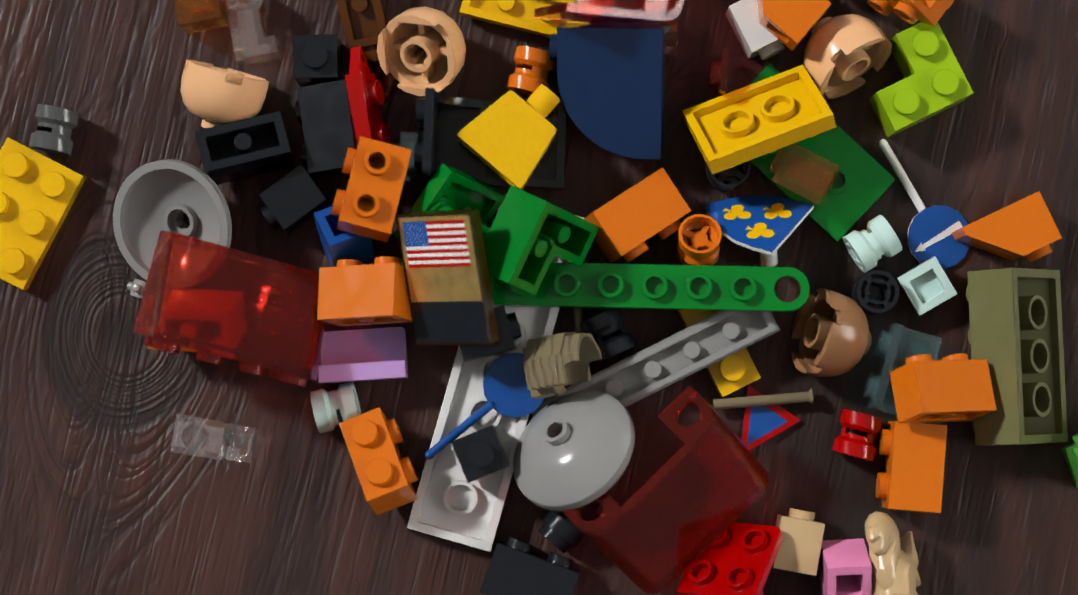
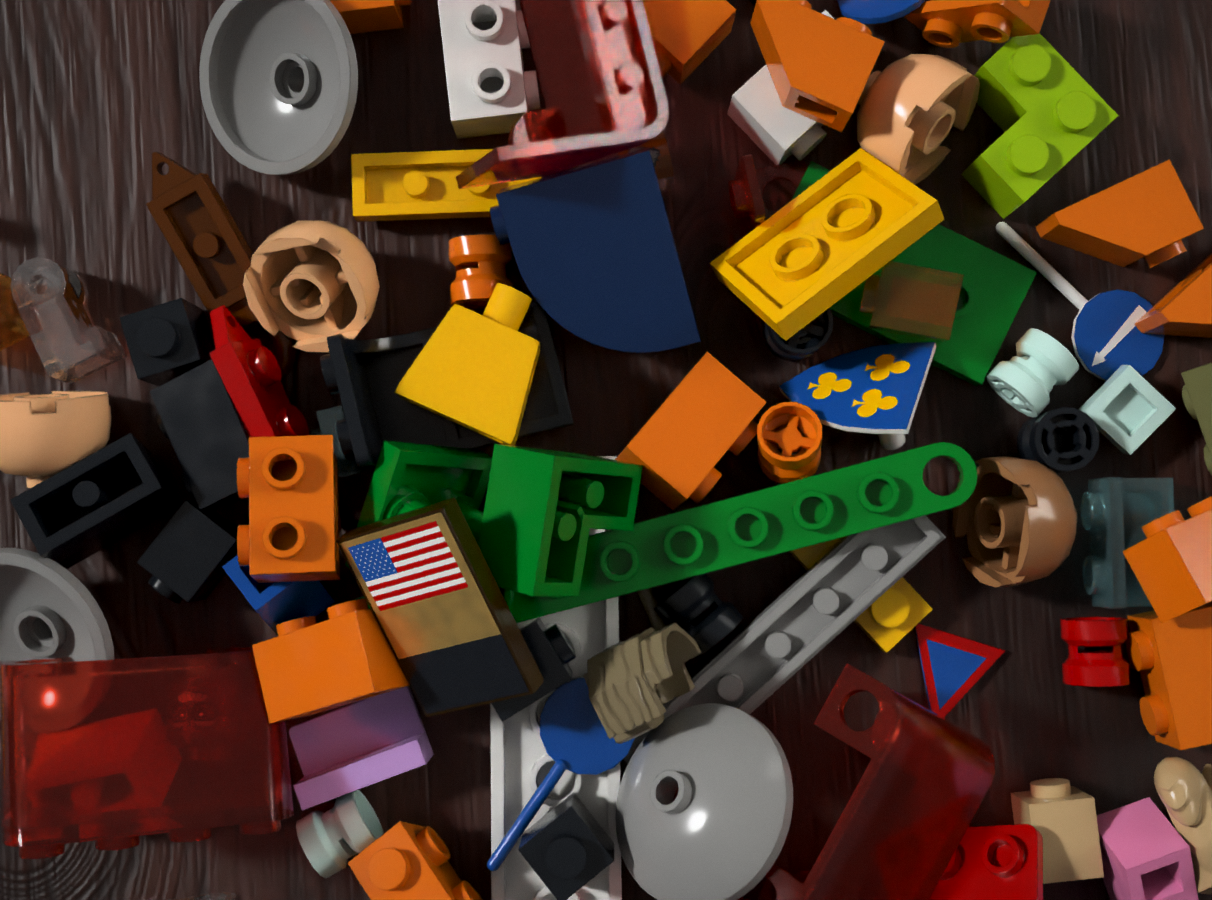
camera: 20 degrees left, 0 degrees up
(763, 400) = (945, 639): dark tan piece -> none
(965, 162) = (1129, 220): none -> orange slope

